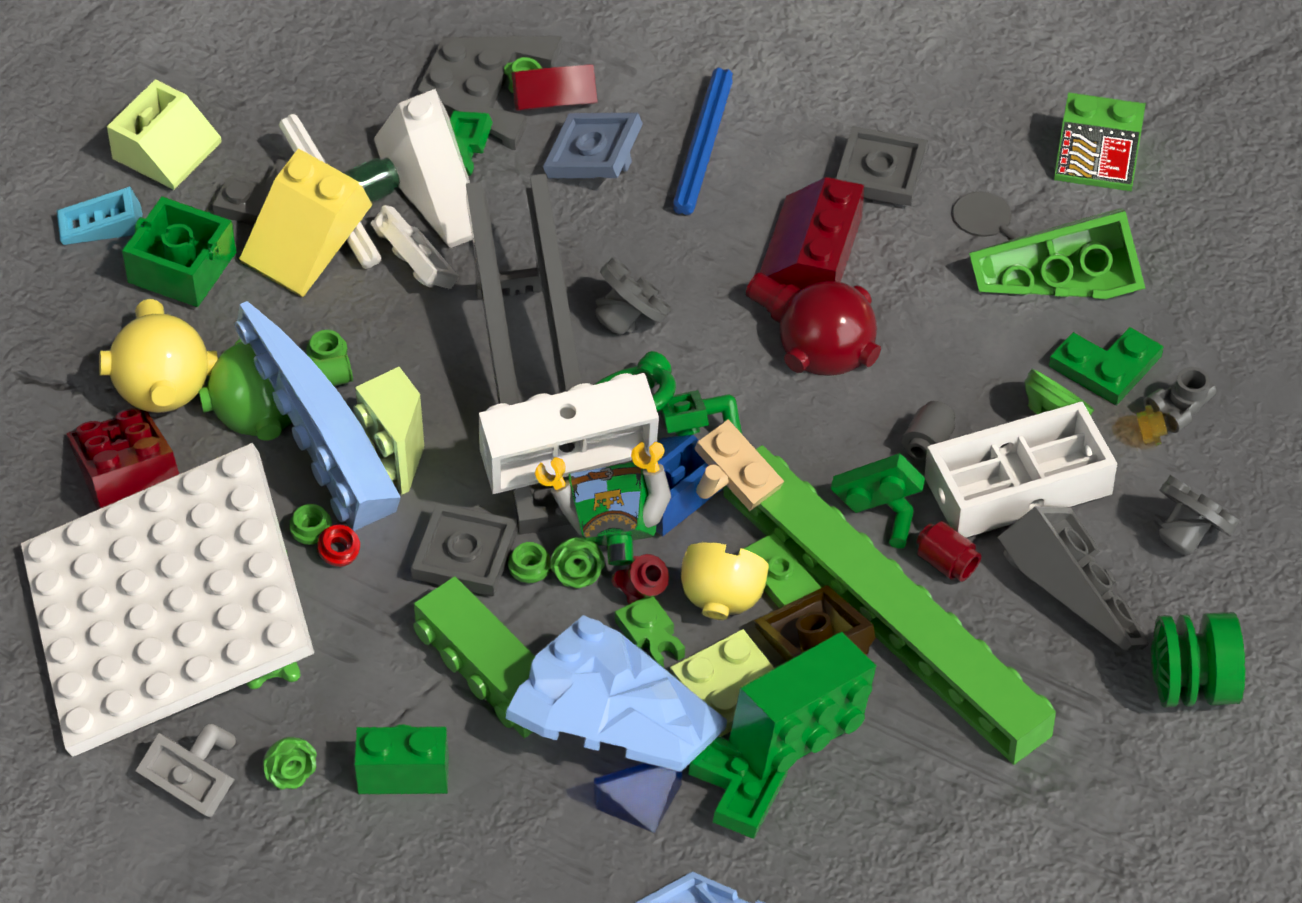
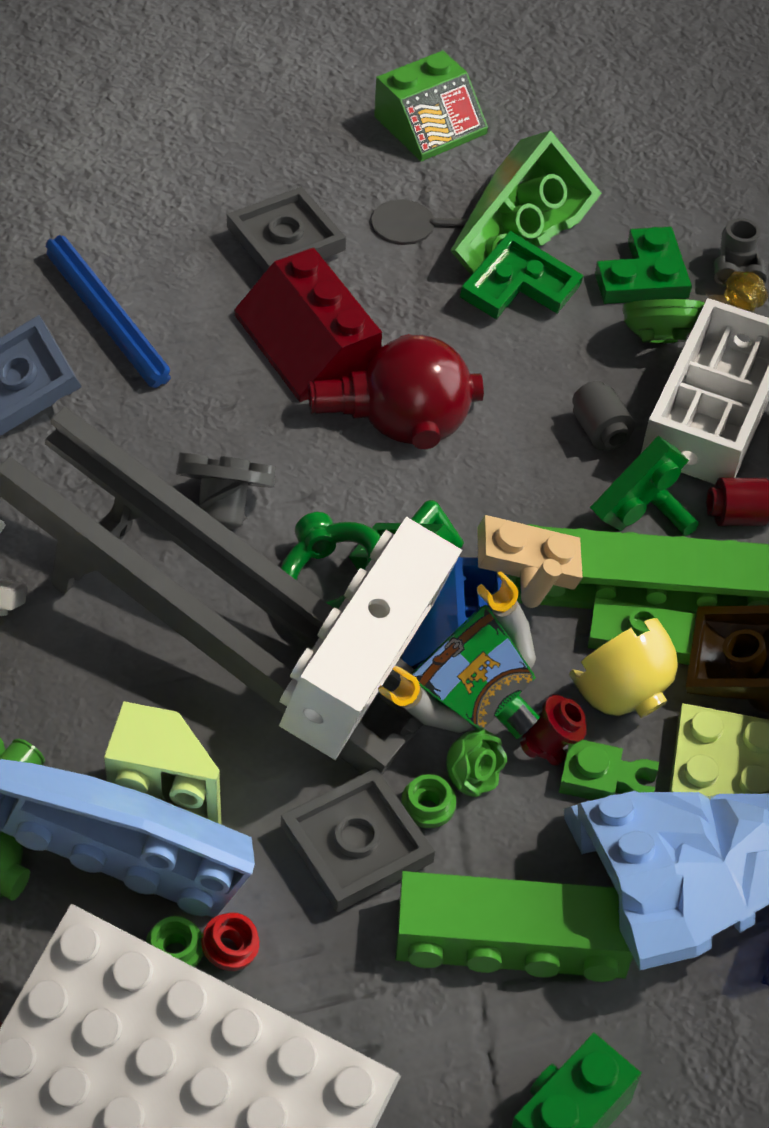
camera: 50 degrees left, 0 degrees up
(1000, 295) = (518, 268): none -> green plate

